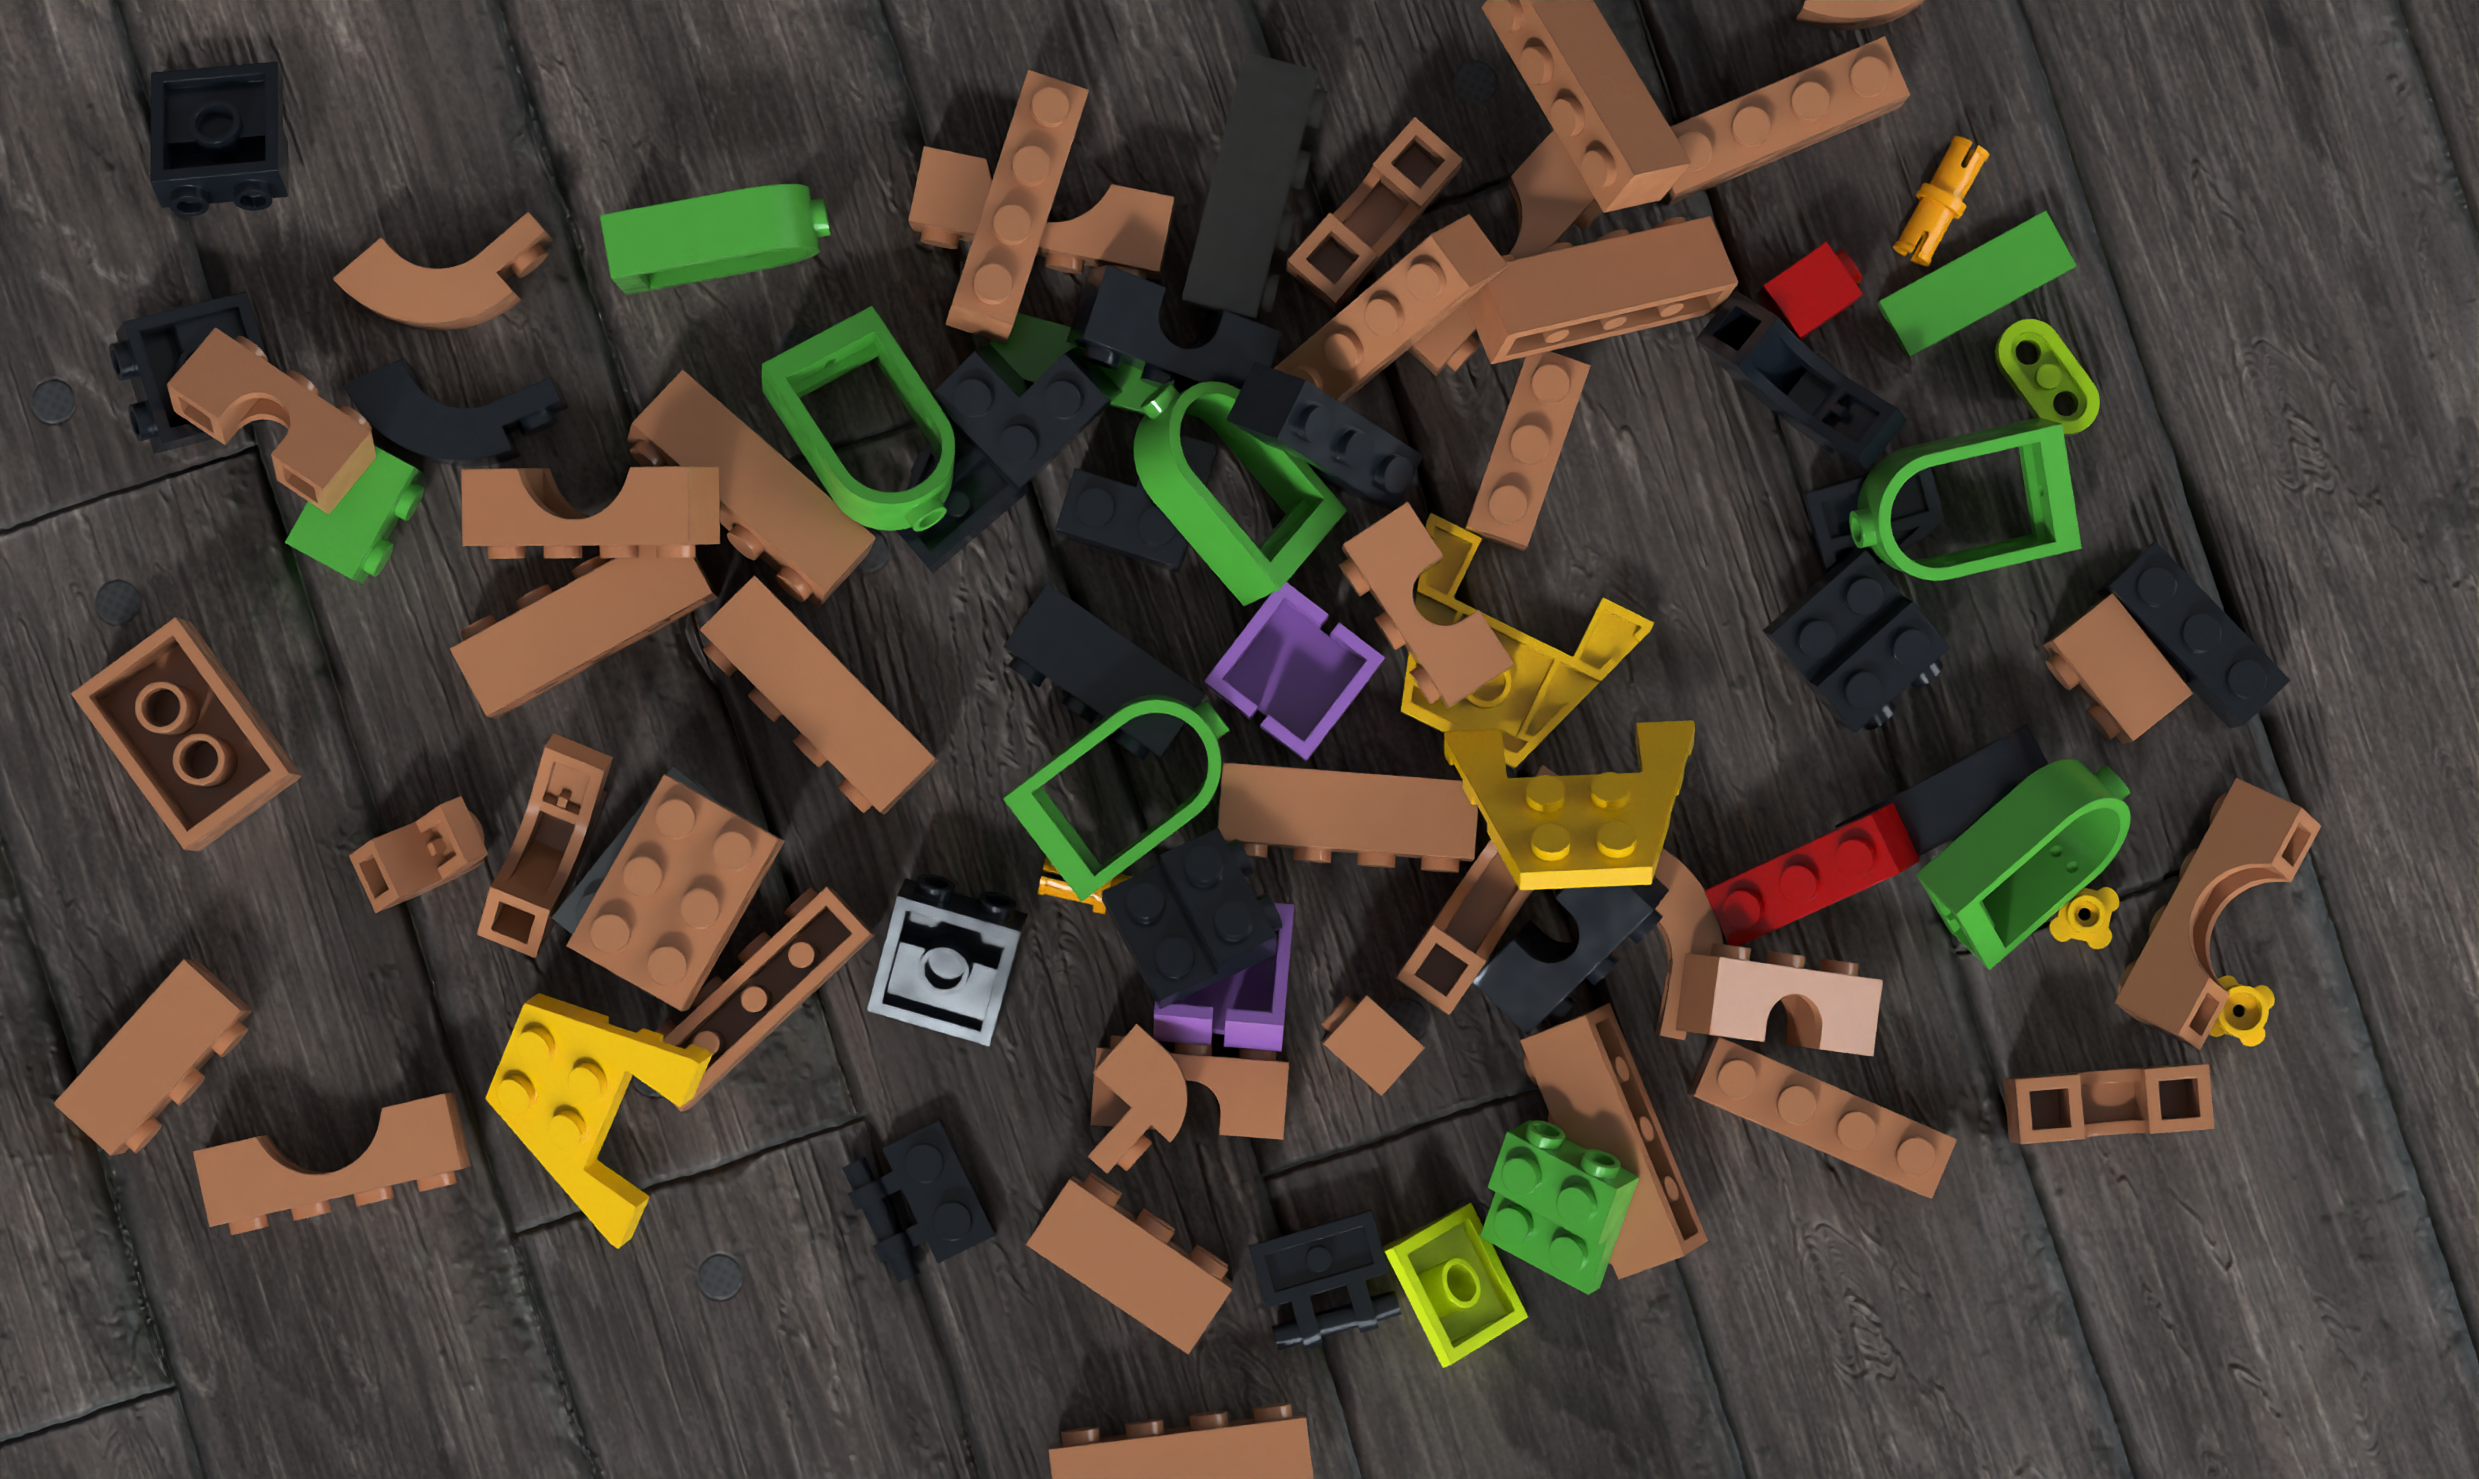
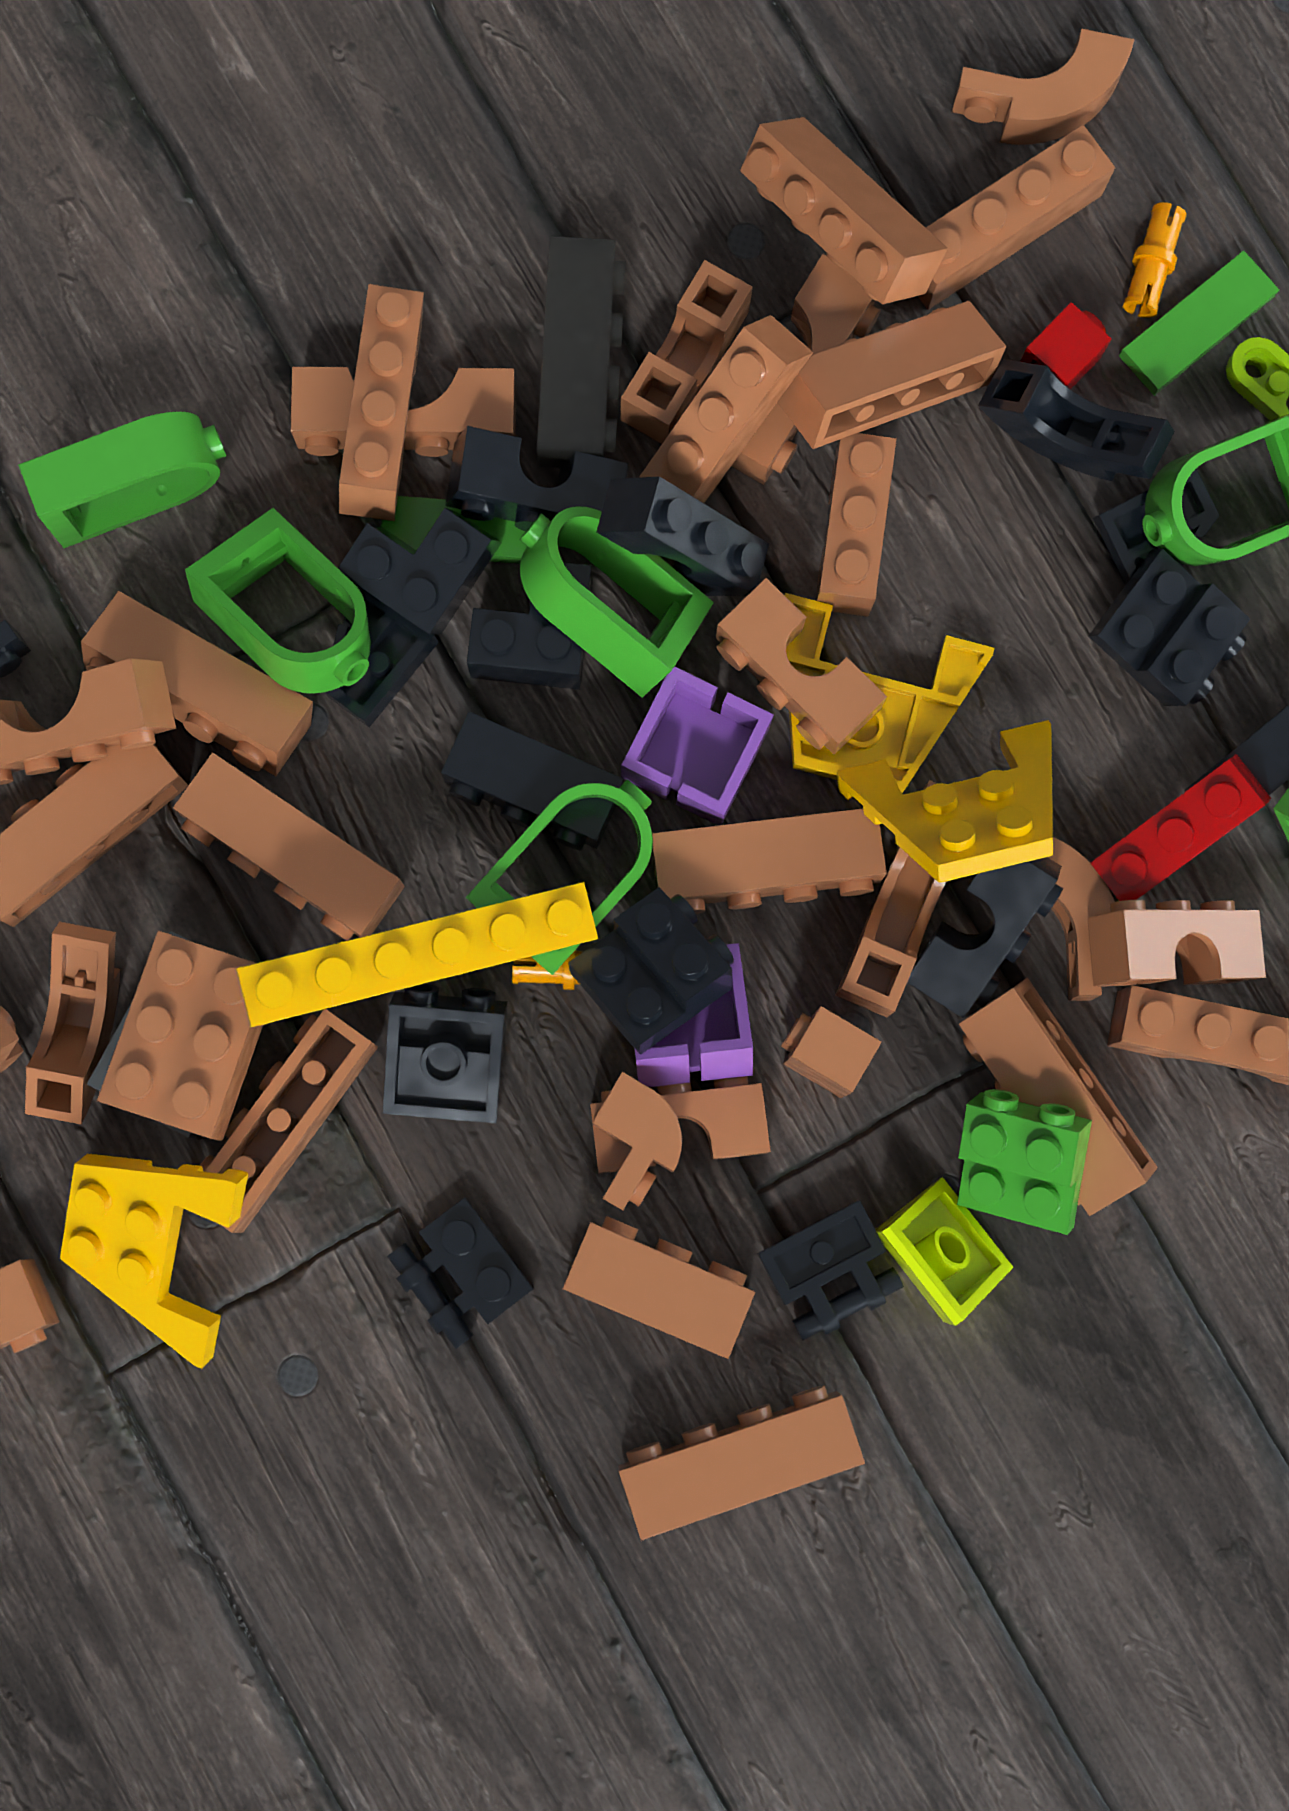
camera: 15 degrees left, 5 degrees down
(939, 854) = (416, 954): none -> yellow plate

